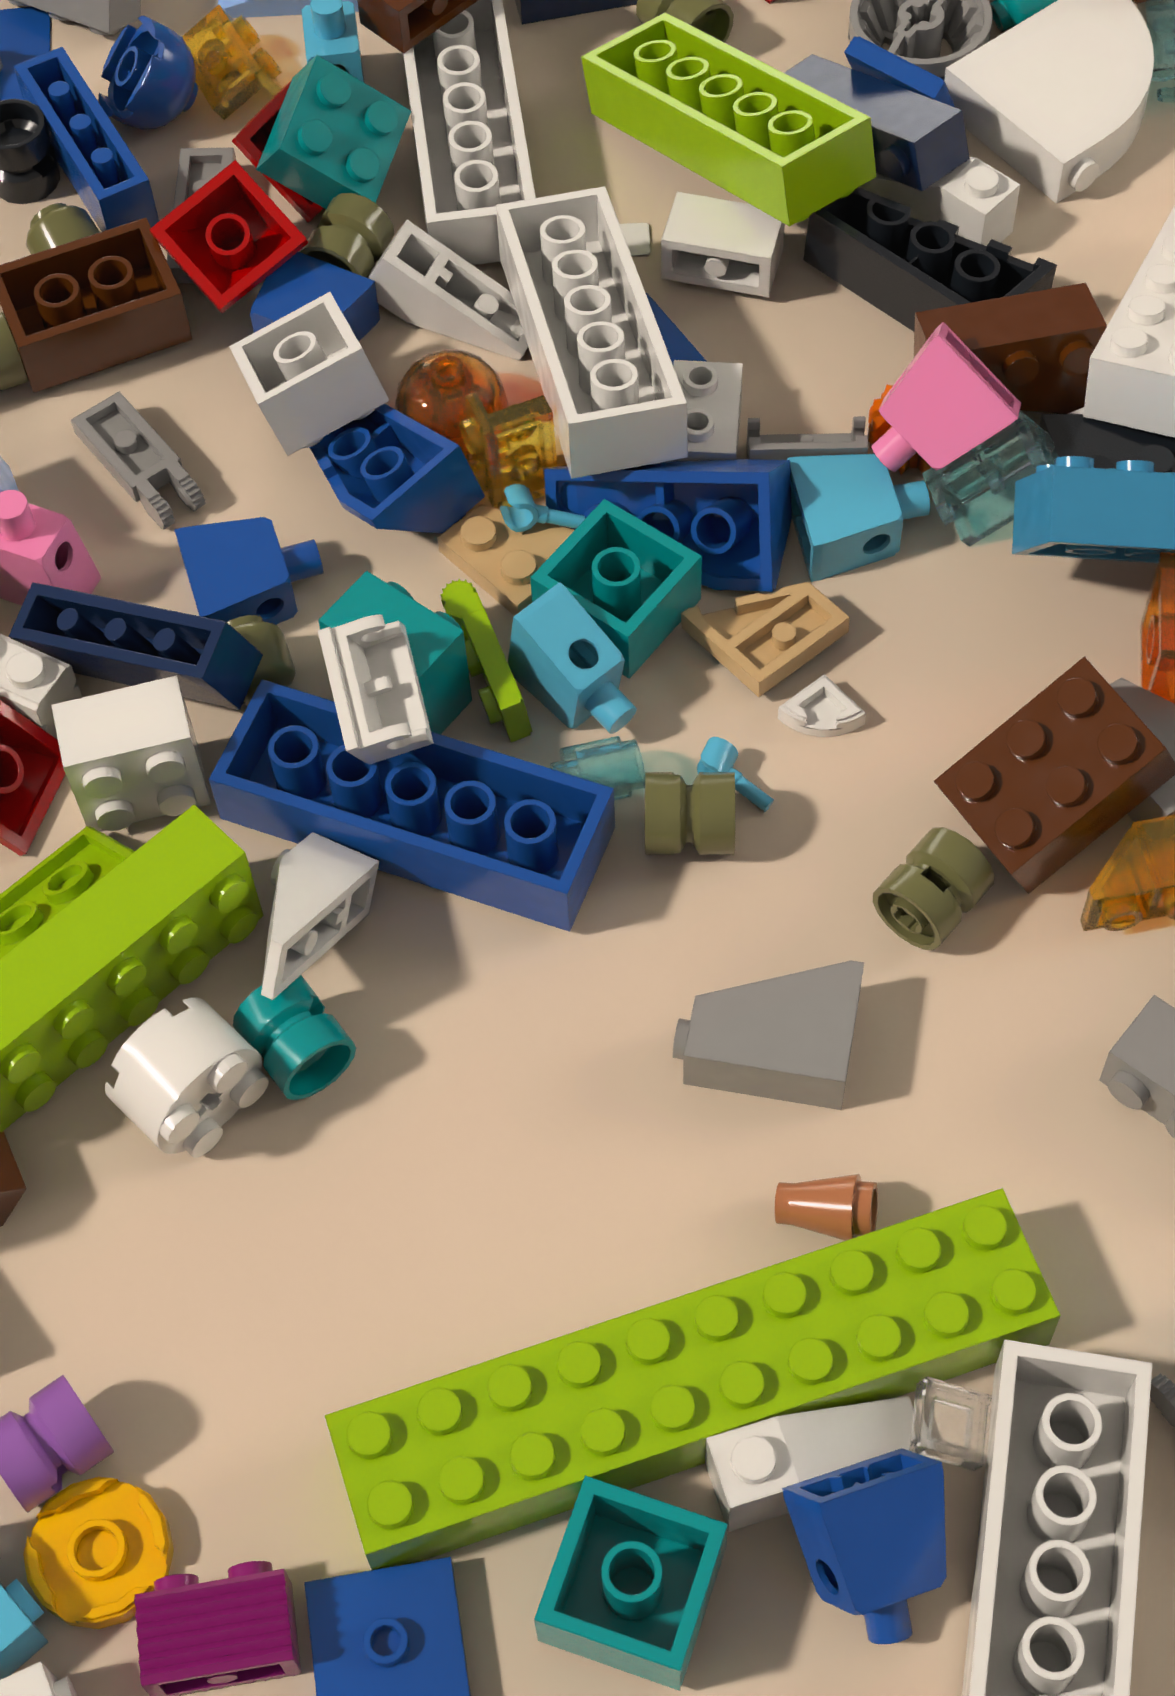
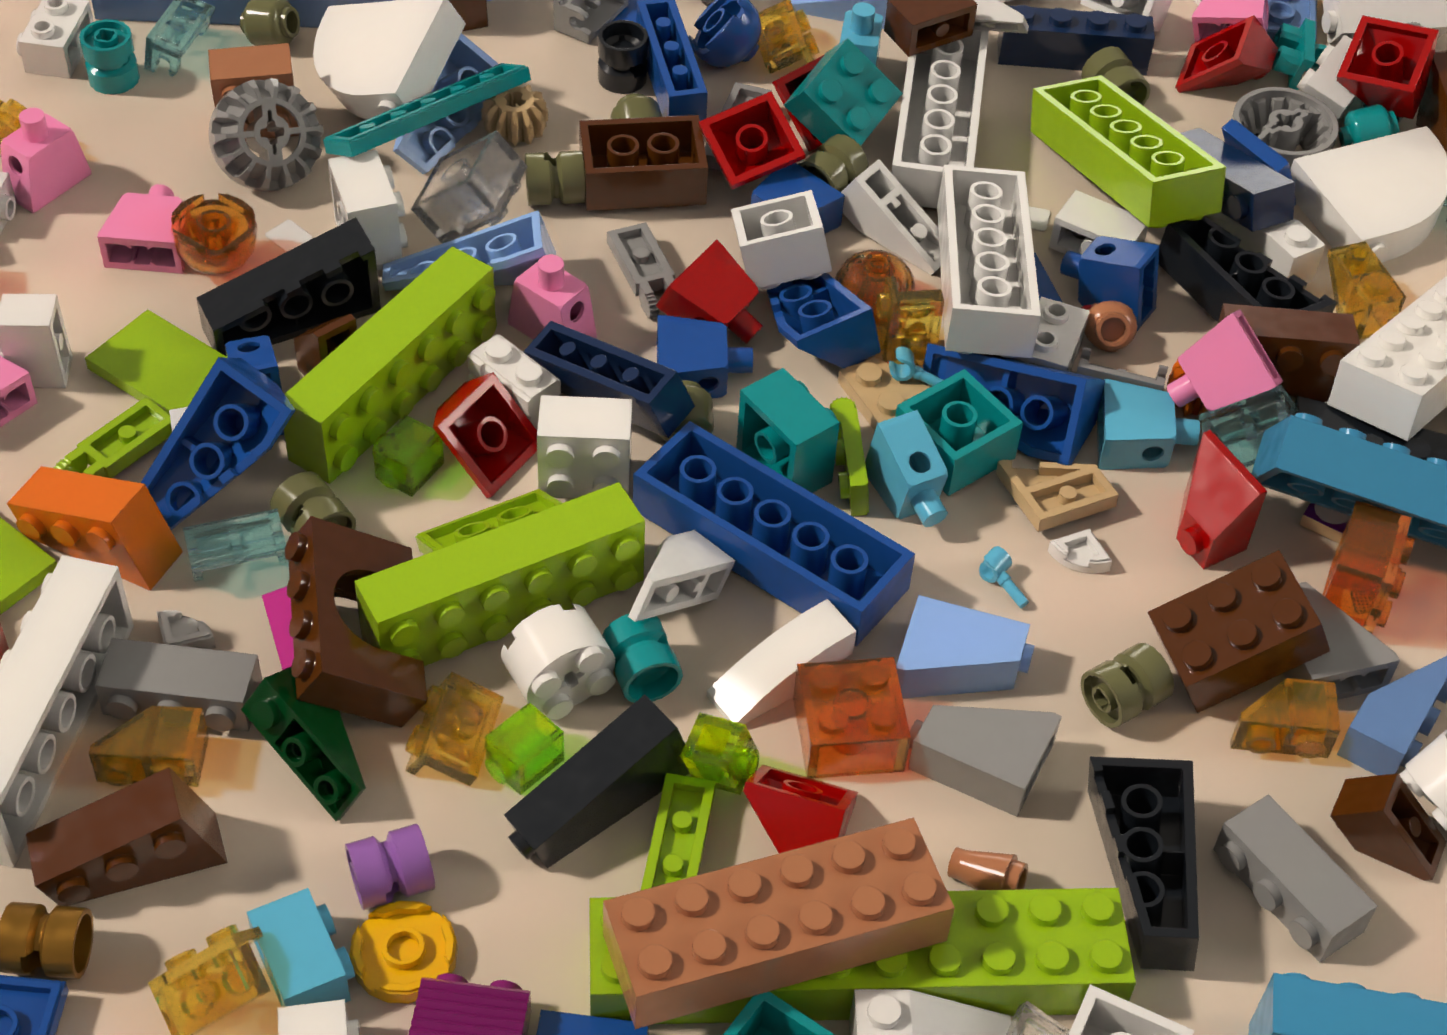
camera: 10 degrees right, 10 degrees down
(74, 1214) = (454, 729): none -> clear yellow bracket
(174, 1215) = (524, 749): none -> clear neon green brick
(241, 475) = (714, 291): none -> red torso
(289, 1242) = (598, 784): none -> black slope
(375, 688) = (767, 441): white hinge -> none
(415, 1286) = (679, 830): none -> lime plate
(438, 1147) = (721, 752): none -> clear neon green brick
(482, 990) = (768, 671): none -> white slope
(564, 1198) = (798, 808): none -> red slope
(580, 1388) = (775, 922): none -> nougat brick
(592, 1041) = (851, 717): none -> clear orange brick
(605, 762) = (920, 540): clear light blue brick -> none
(690, 813) = (966, 587): olive wheel -> none
(706, 902) = (960, 651): none -> light blue slope
(763, 305) = (1116, 272): none -> blue torso
(772, 372) = (1110, 325): none -> nougat animal
(980, 597) = (1218, 504): none -> red slope
(1025, 1108) = (1151, 848): none -> black wedge
(1083, 232) = (1363, 287): none -> clear yellow slope
(1121, 578) = (1324, 521): none -> tile

